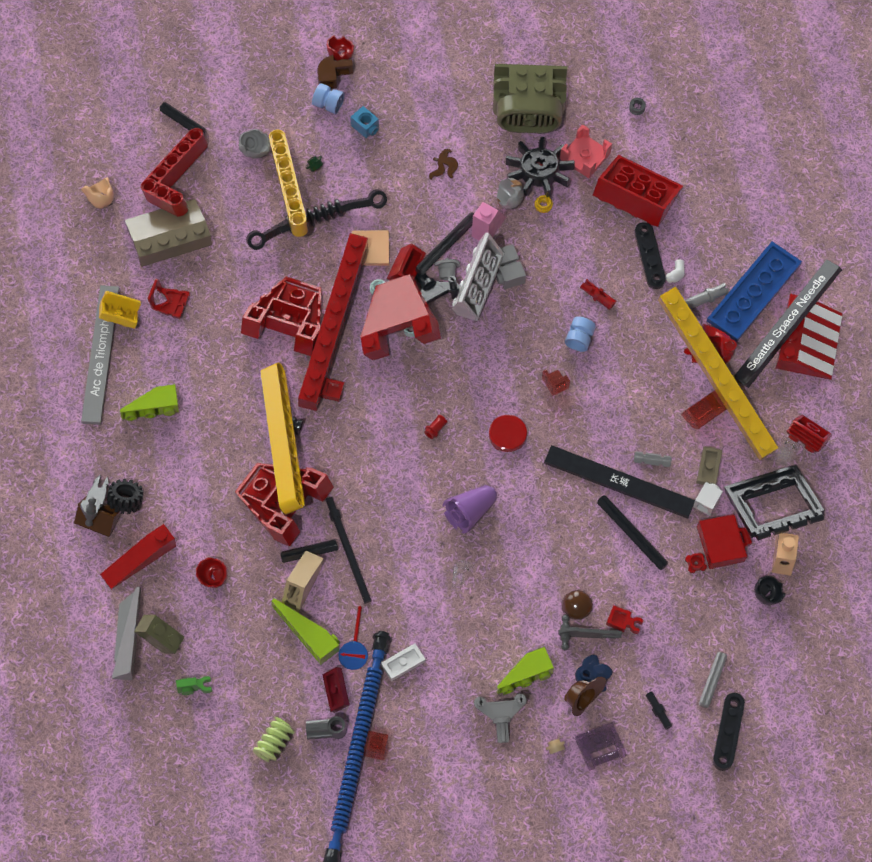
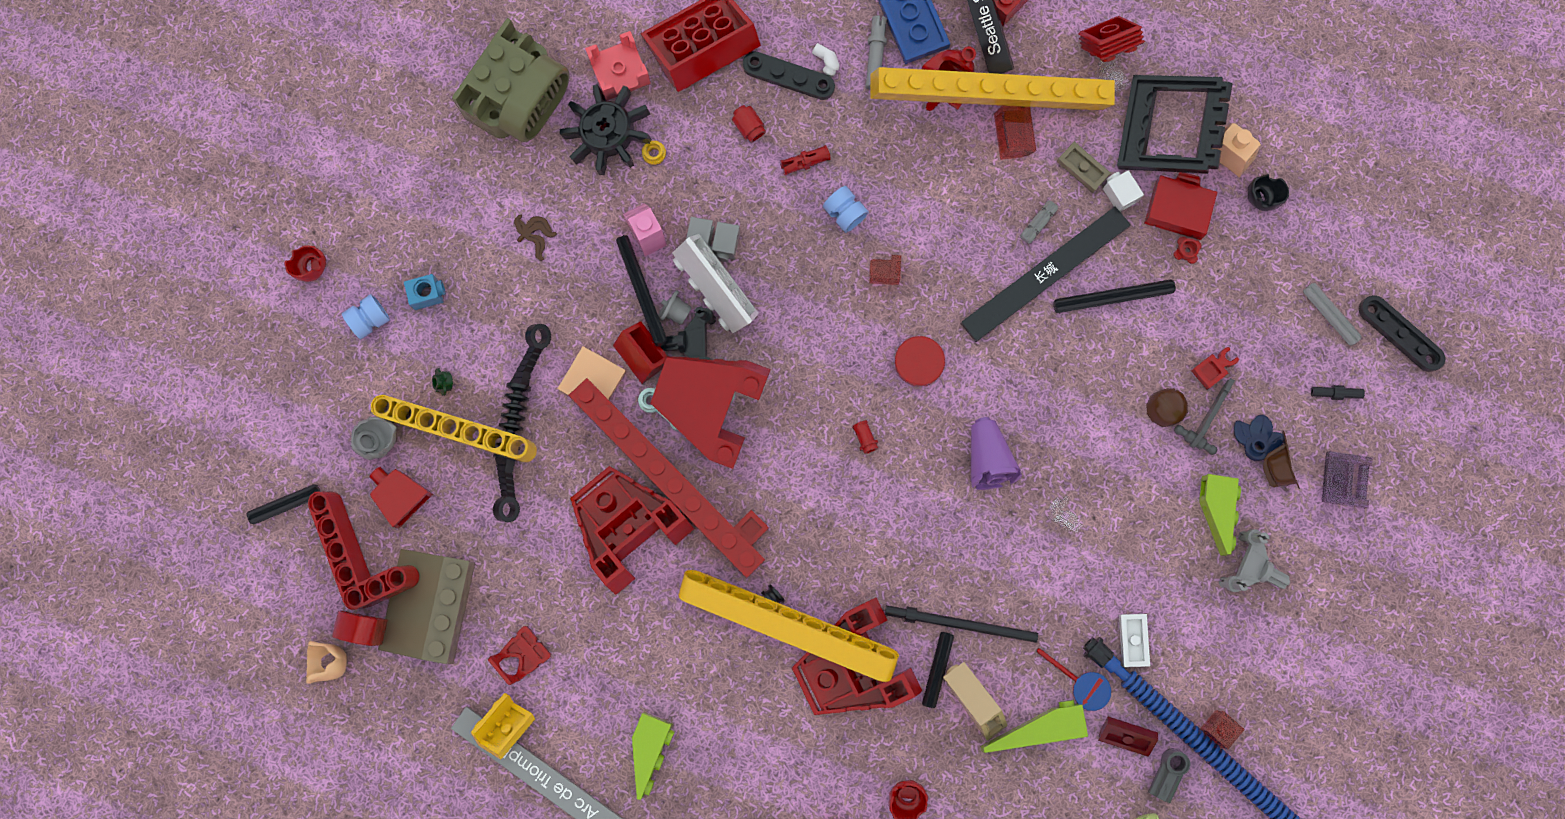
camera: 55 degrees left, 15 degrees up
(132, 199) = (359, 628): none -> red beam
(226, 177) = (397, 495): none -> red torso
(329, 69) = (327, 292): reddish brown brick -> none
(510, 193) = (621, 182): light grey hair -> none
(555, 746) = (1323, 529): tan plate -> none
(600, 247) = (748, 123): none -> red brick

